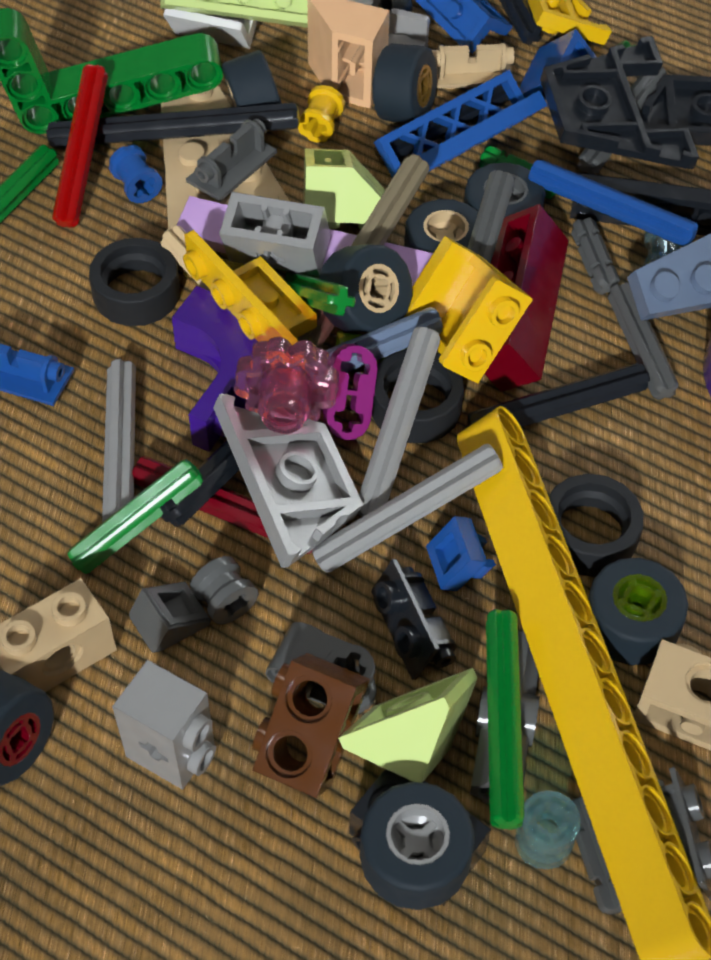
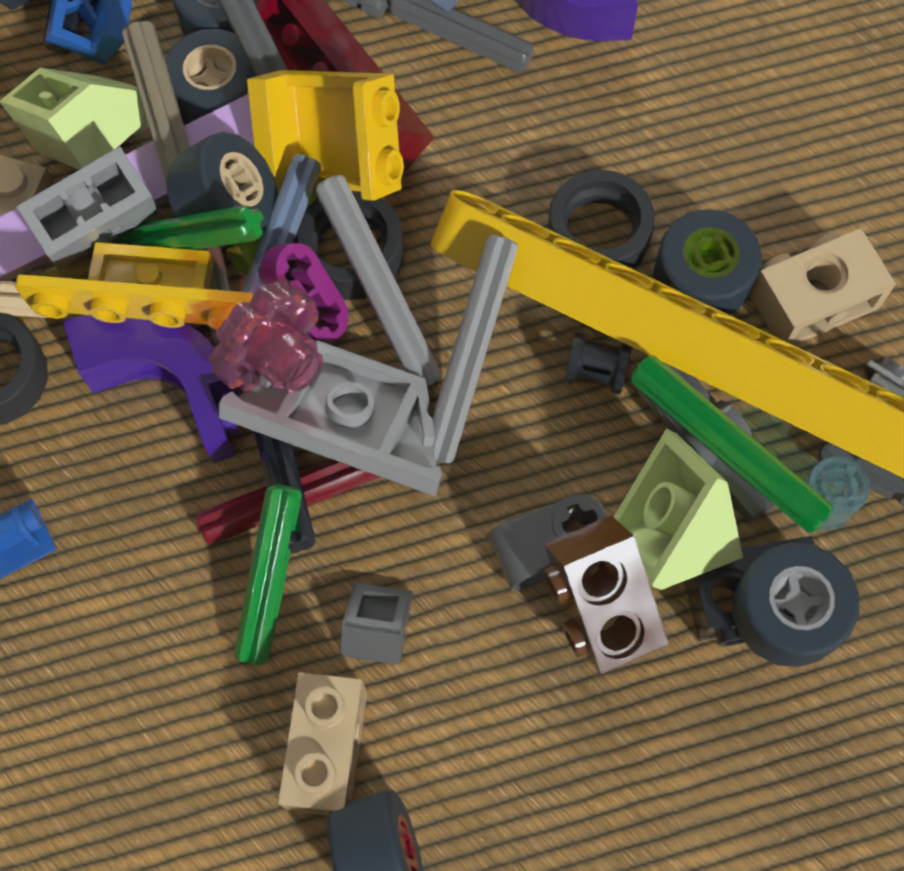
camera: 45 degrees left, 15 degrees up
(119, 436) = (157, 523): light grey axle -> none
(165, 725) = (509, 710): light grey brick -> none
(224, 590) = (401, 558): dark grey wheel -> none
(403, 603) = (540, 429): black hinge -> none
(458, 554) = (536, 347): blue tile -> none
(482, 594) = (598, 363): none -> black bush
(572, 395) = (458, 143): black axle -> none

